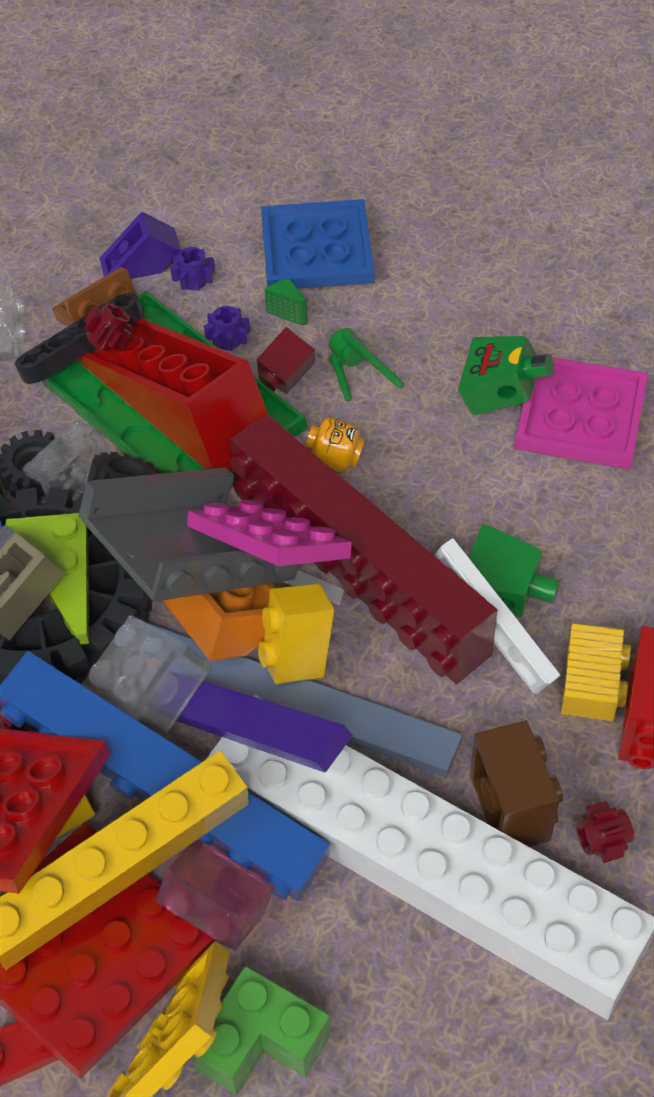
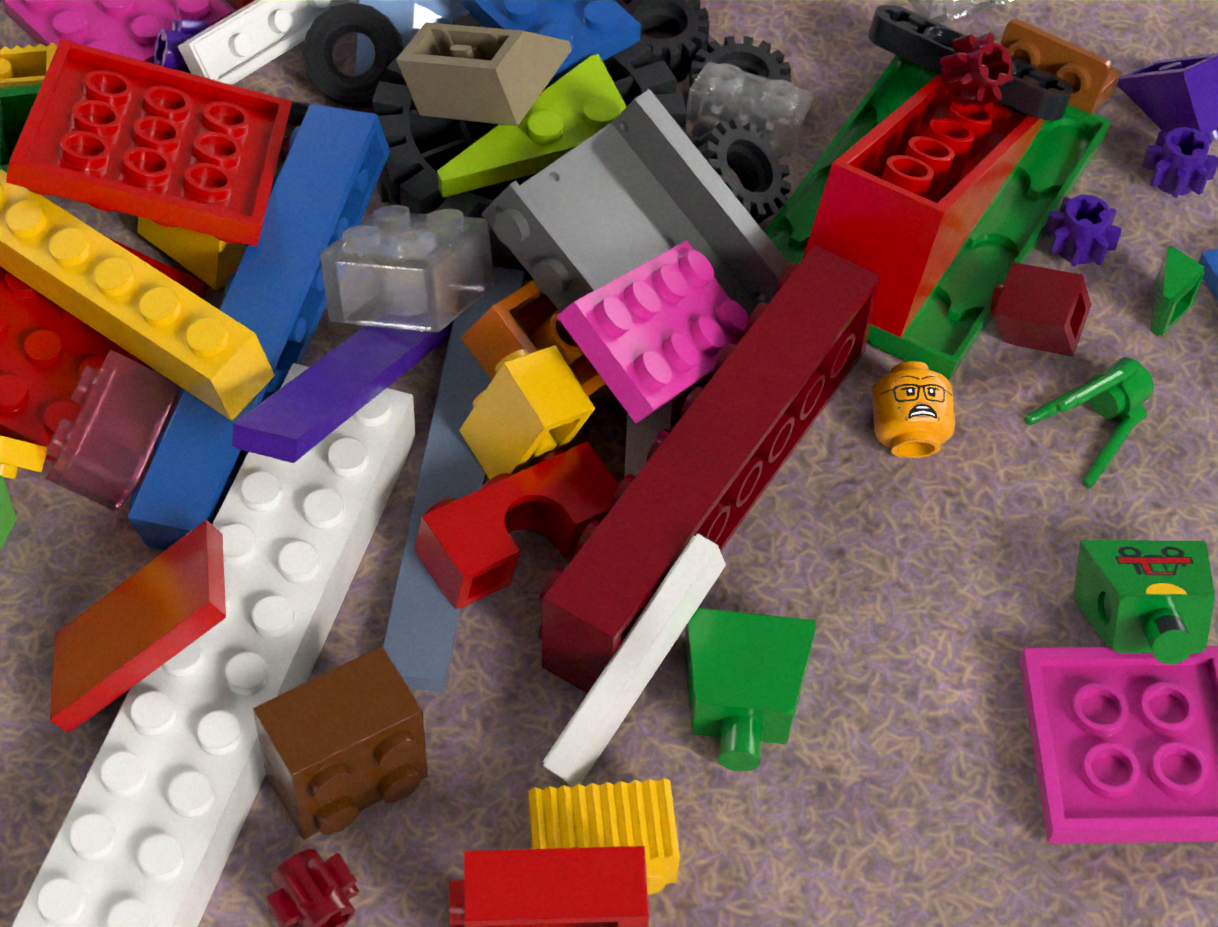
camera: 70 degrees right, 0 degrees up
(371, 690) = (469, 541): none -> red arch
(401, 891) = (138, 627): none -> red tile

